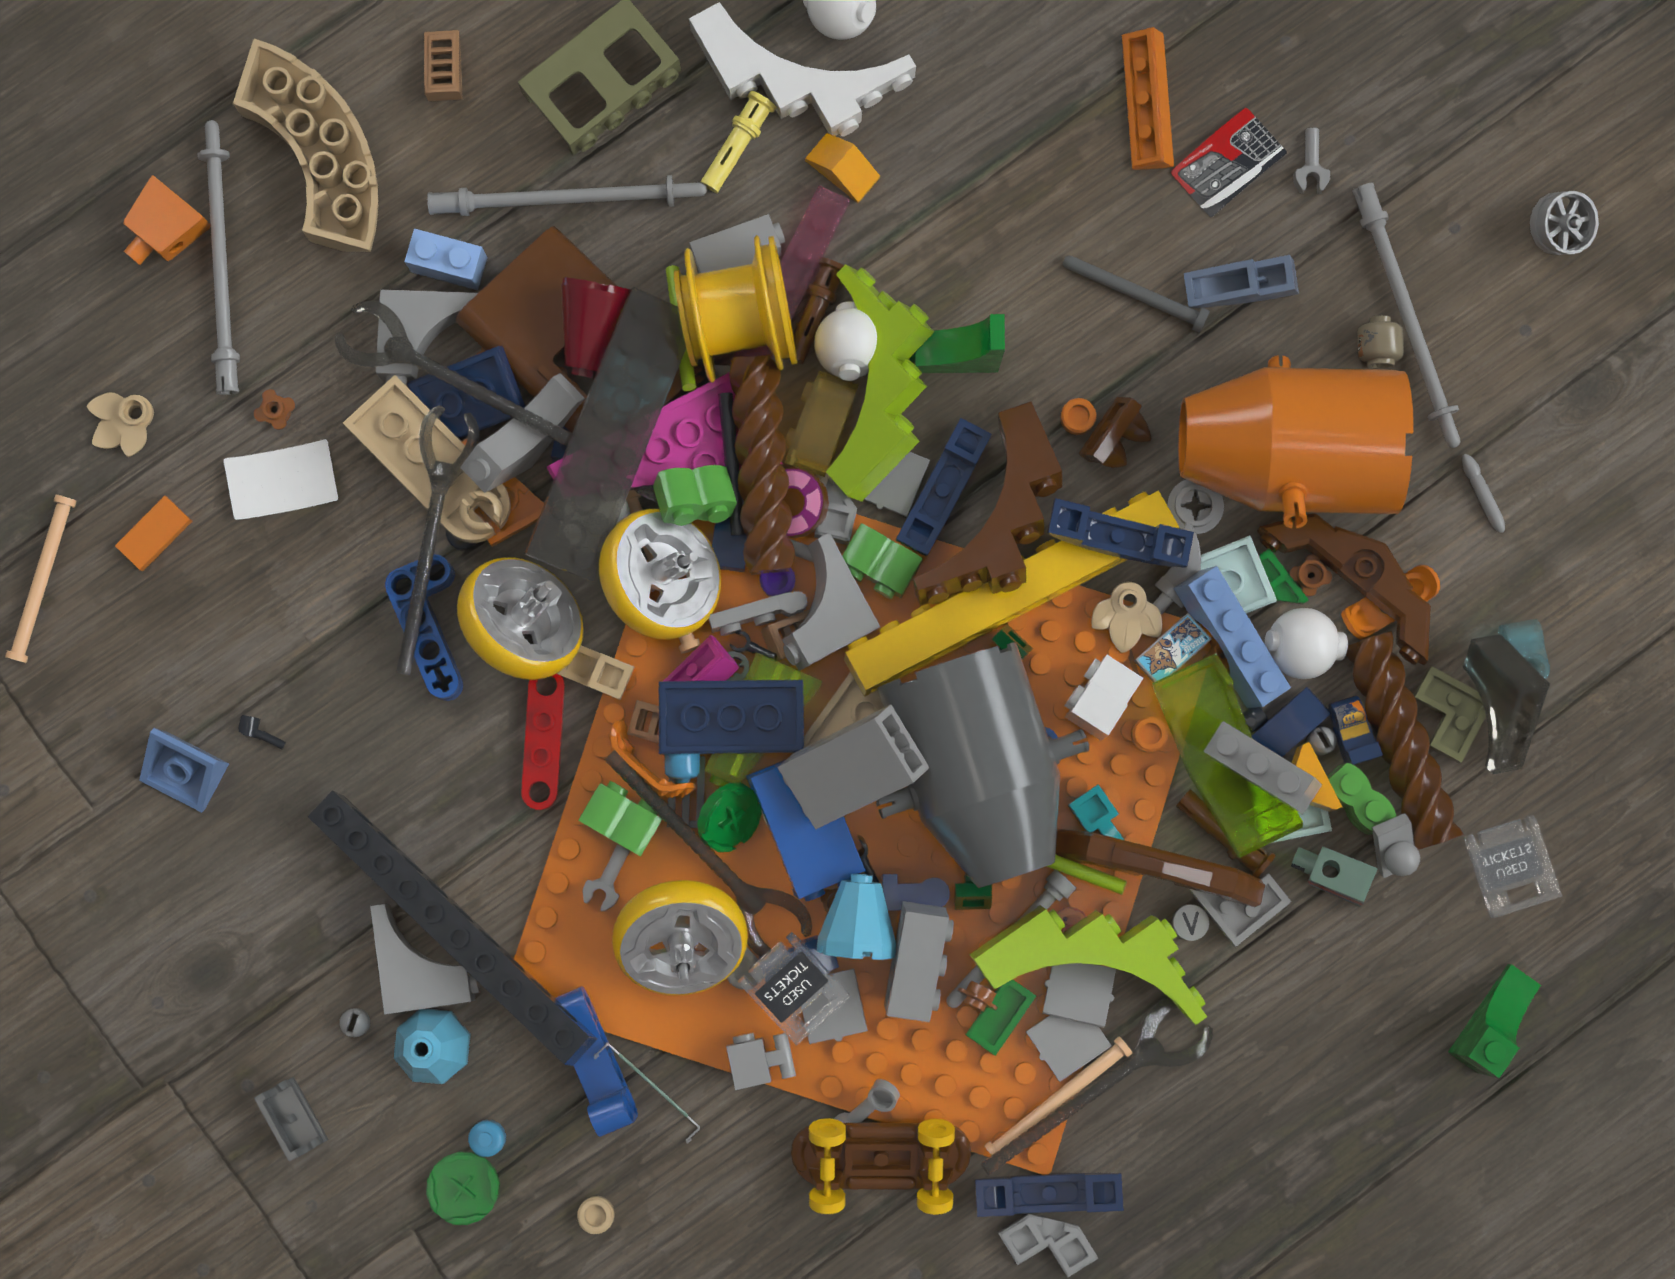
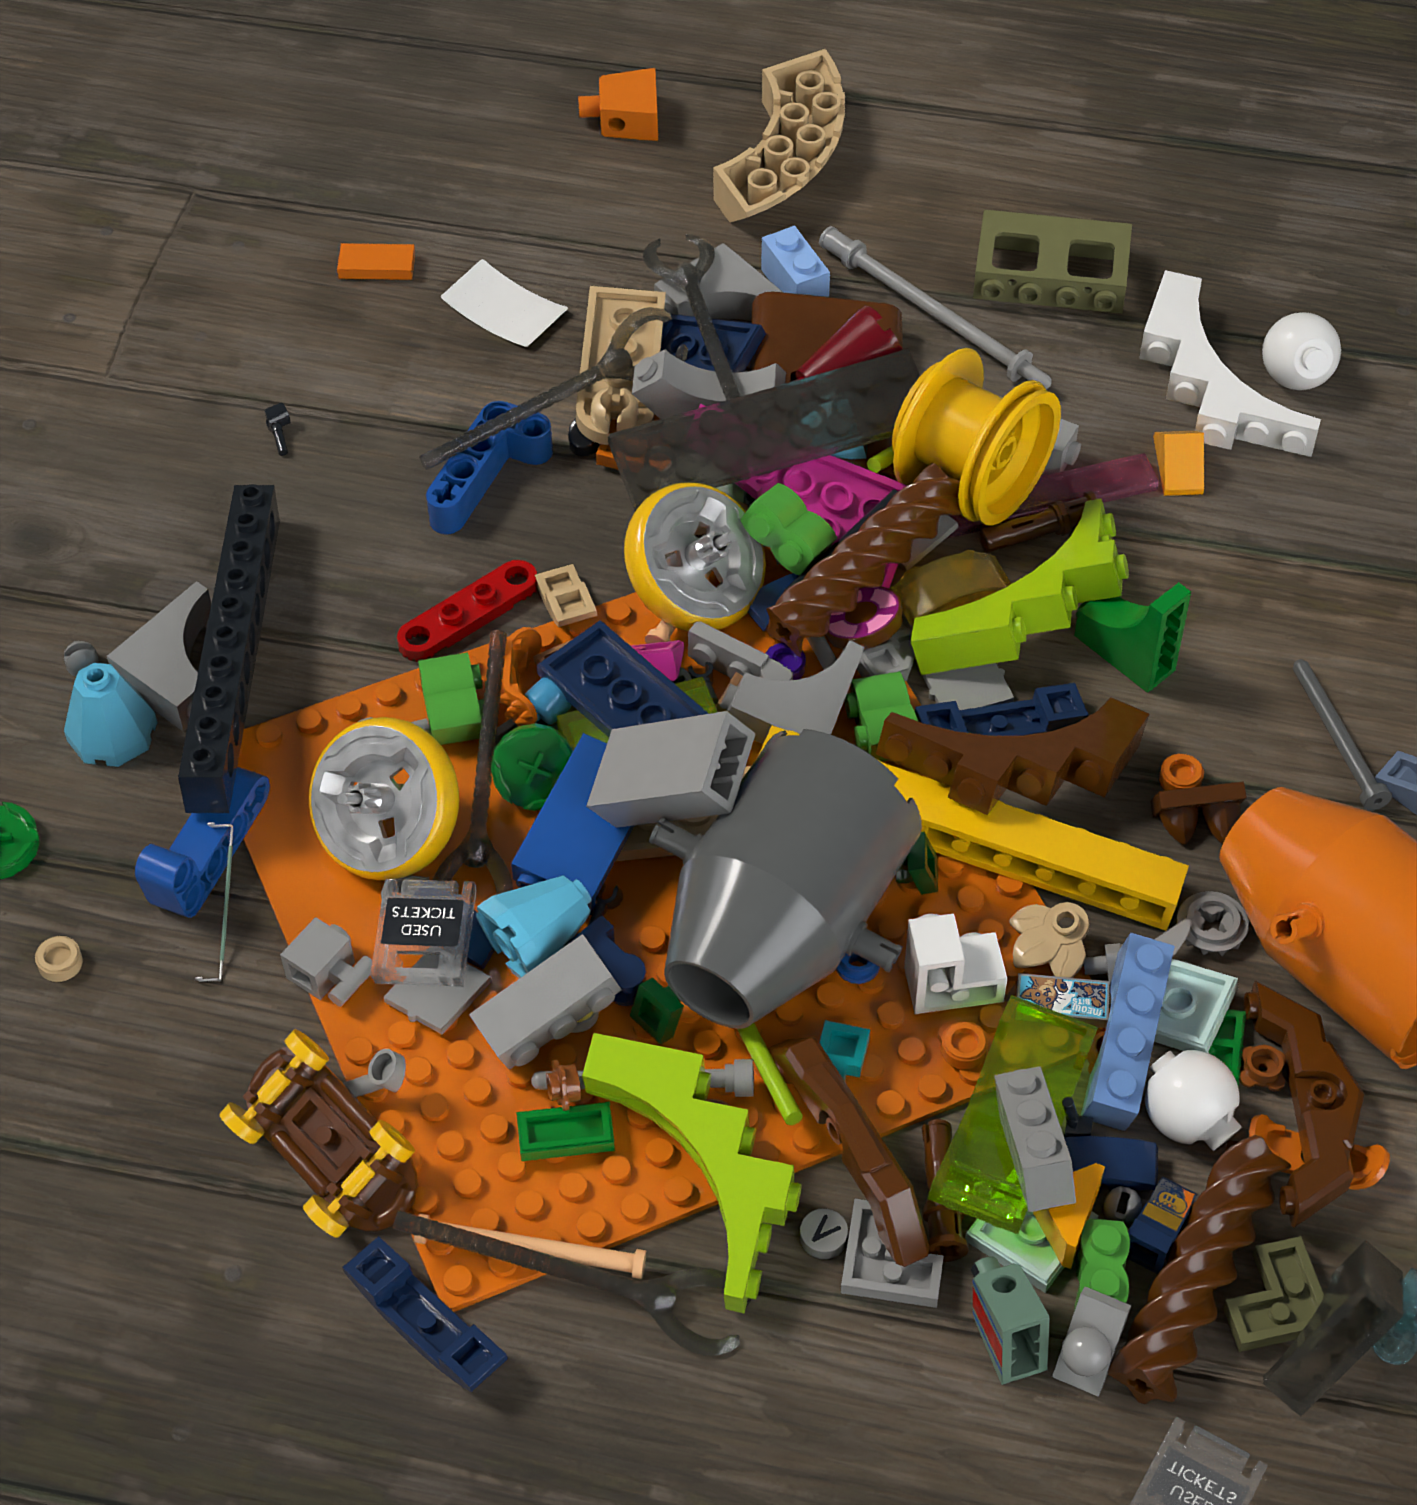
camera: 50 degrees right, 30 degrees down
(41, 578) = (267, 223): light nougat bar -> none
(116, 423) = (447, 187): tan plate -> none
(181, 769) = (196, 397): medium blue slope -> none
(224, 356) = (564, 206): light grey bar -> none
(279, 418) = (556, 262): dark orange plate -> none
(442, 91) = (920, 181): medium nougat slope -> none
(487, 1138) = (59, 823): dark azure piece -> none
(533, 605) = (538, 510): flat silver wheel -> none
(745, 128) = (1127, 375): light yellow pin -> none
(846, 342) = (1034, 543): white brick -> none
(1035, 1233) = (390, 1378): light grey tile -> none
(1067, 1044) = (599, 1210): light grey piece -> none
(1079, 993) = (655, 1178): light grey piece -> none
(1118, 536) = (1106, 852): dark blue slope -> none

